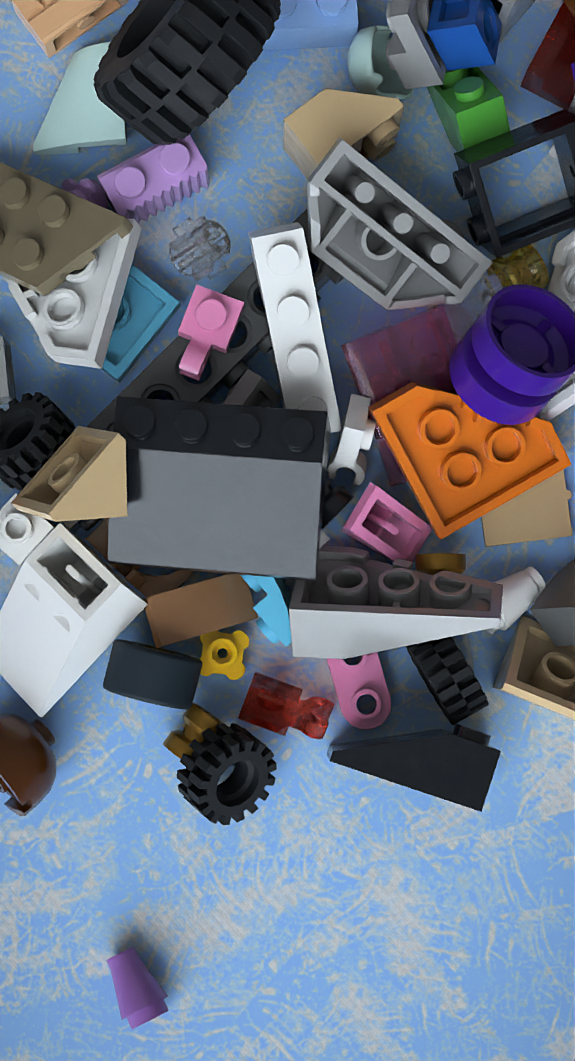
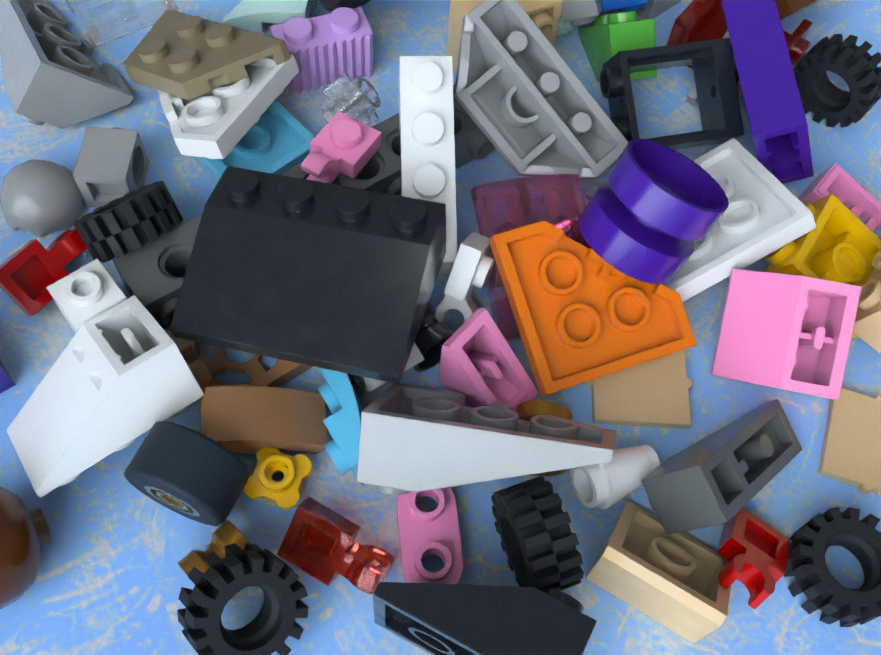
camera: 10 degrees right, 25 degrees down
(80, 479) = (159, 235): tan slope -> none

